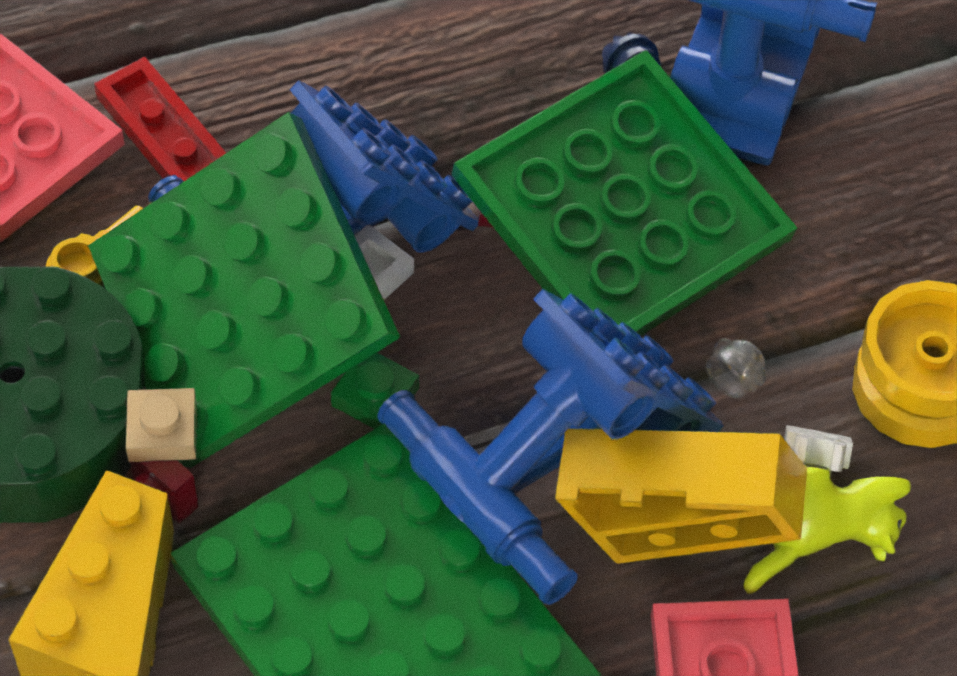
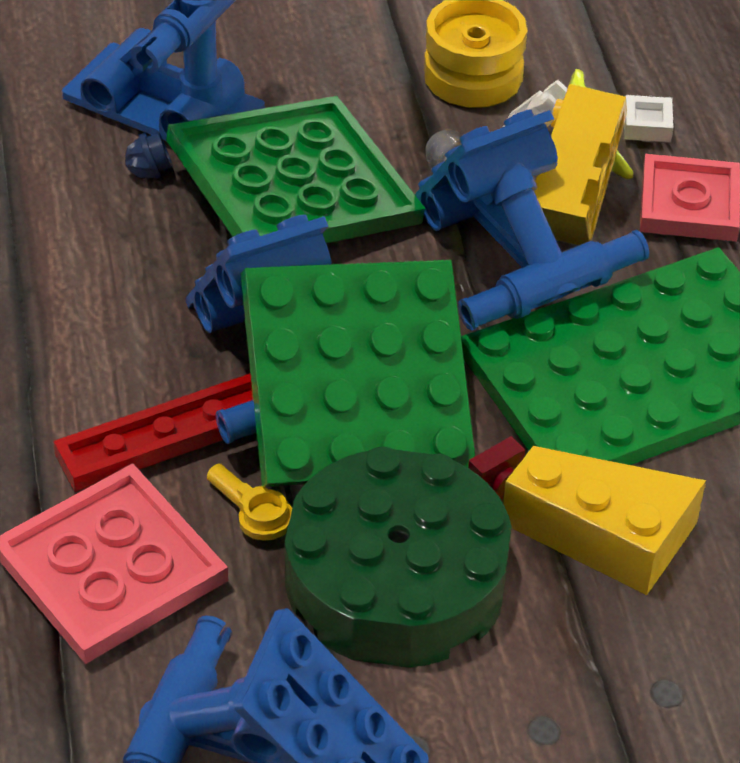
camera: 80 degrees left, 10 degrees down
(161, 424) = (470, 440): tan plate -> none
(880, 604) = (648, 119): none -> white plate

